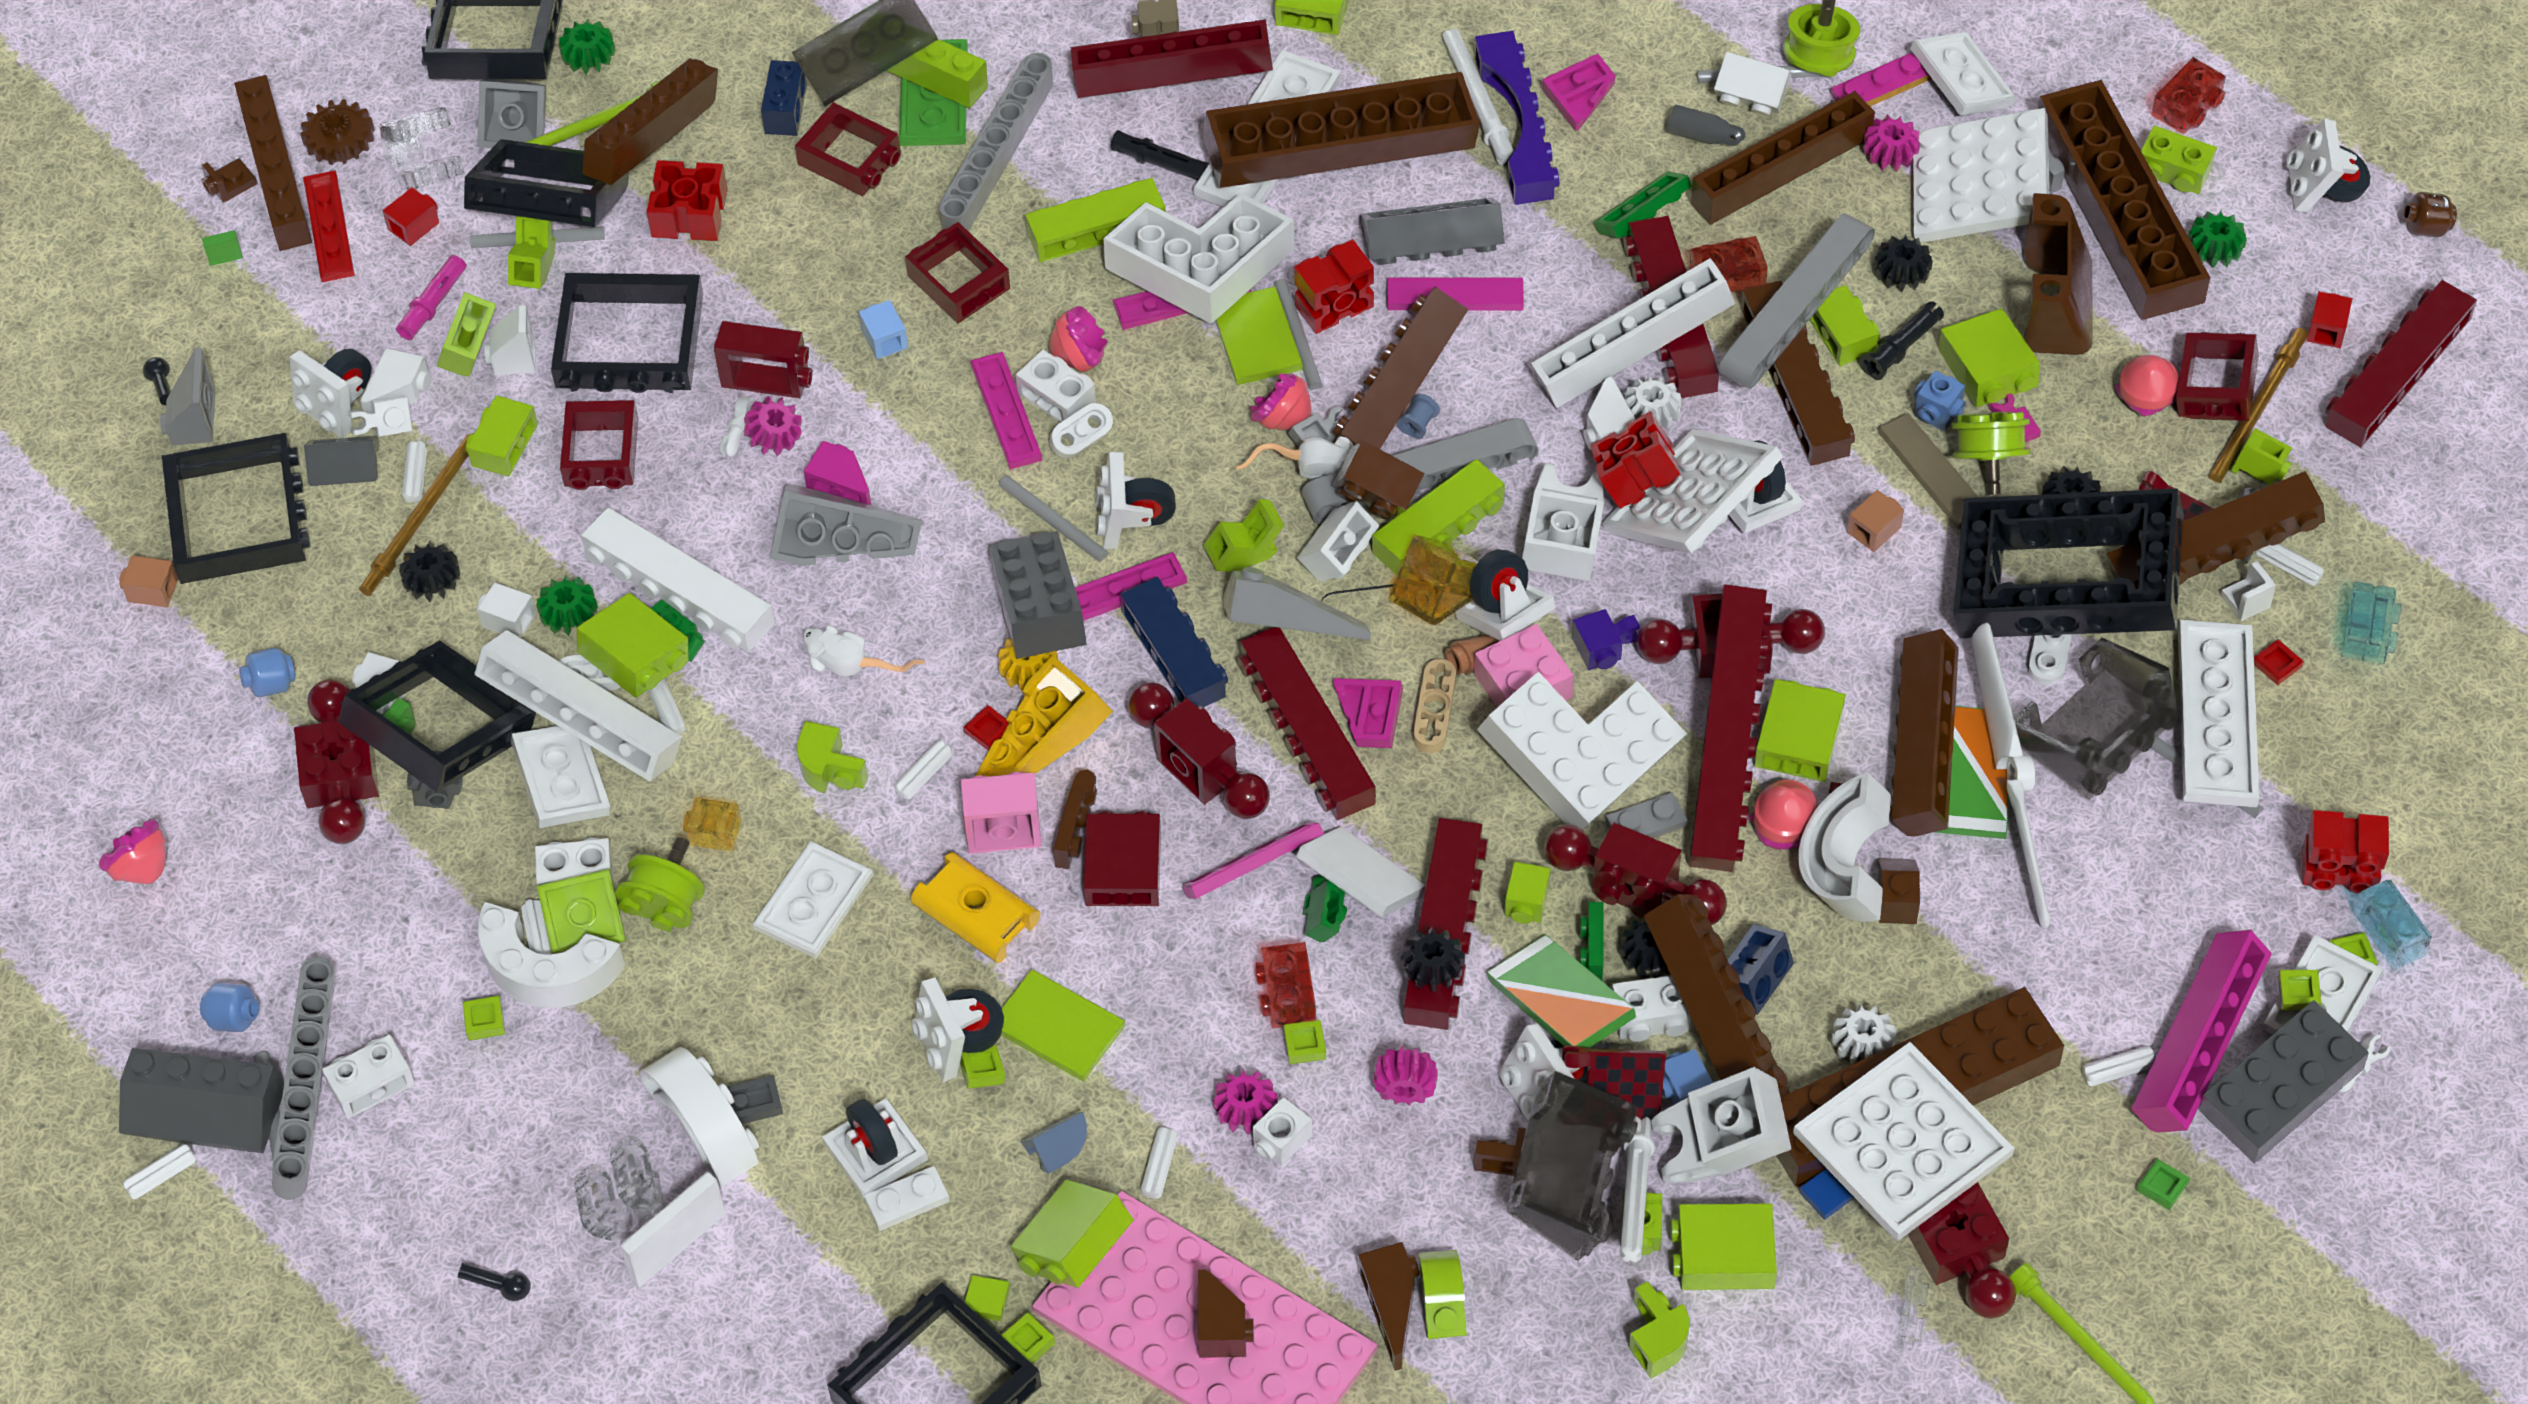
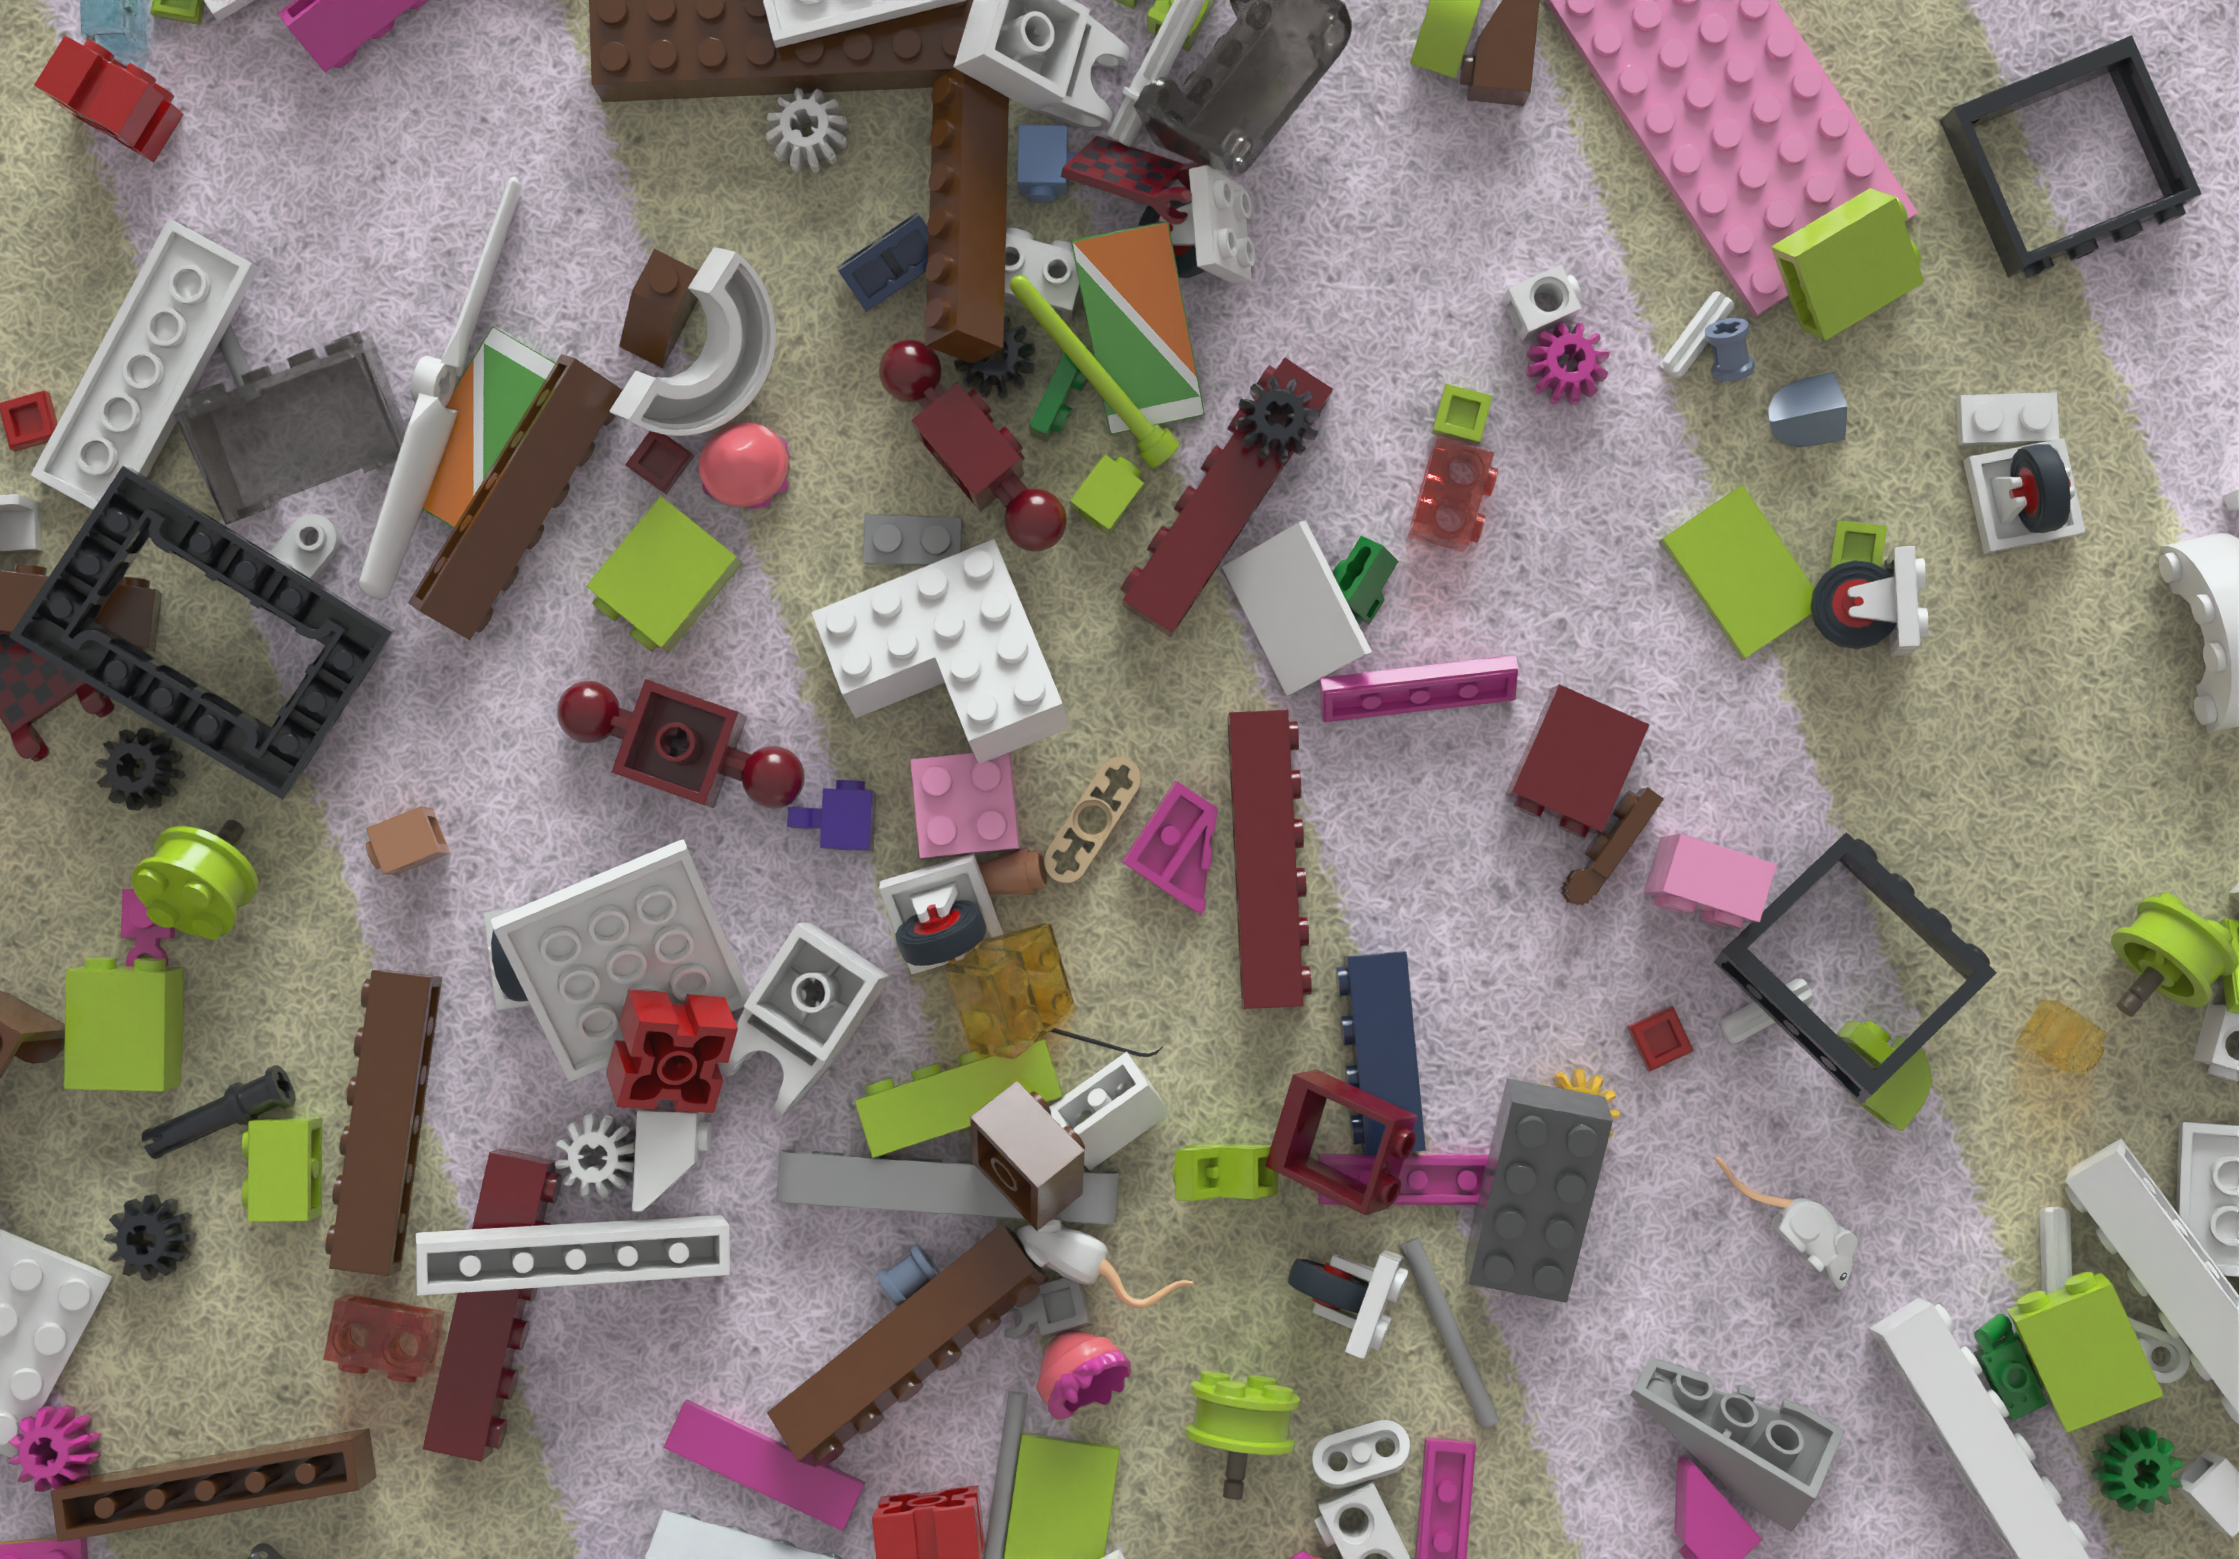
camera: 160 degrees left, 30 degrees up
(756, 1099) = (2154, 626): dark grey plate -> none
(813, 899) = (1980, 872): white tile -> none
(904, 749) = (1801, 1021): none -> black window
(962, 886) = (1815, 789): yellow piece -> none
(987, 1297) = (1963, 250): lime tile -> none
(1029, 1338) = (1940, 172): lime plate -> none
(1048, 723) = (1589, 1004): yellow wedge -> none
(1135, 1153) = (1730, 349): none -> sand blue bush
(1168, 411) = (1242, 1421): none -> lime wheel
(1197, 751) = (1428, 863): dark red brick -> none
(1205, 562) = (1297, 1133): none -> dark red window
(1221, 1320) = (1723, 74): reddish brown slope -> none
(1269, 602) = (1233, 1032): light grey wedge -> none
(1405, 1076) = (1370, 302): dark pink gear -> none
(1497, 1156) = (1306, 161): reddish brown bracket -> none
(1510, 937) = (1154, 443): none -> lime piece
(1643, 204) = (442, 1497): green plate -> none
(1728, 729) = (755, 593): dark red brick -> none
(1796, 301) = (326, 1212): light grey beam -> none
(1928, 466) = (292, 894): dark tan tile -> none
(1939, 400) = (241, 987): medium blue brick -> none

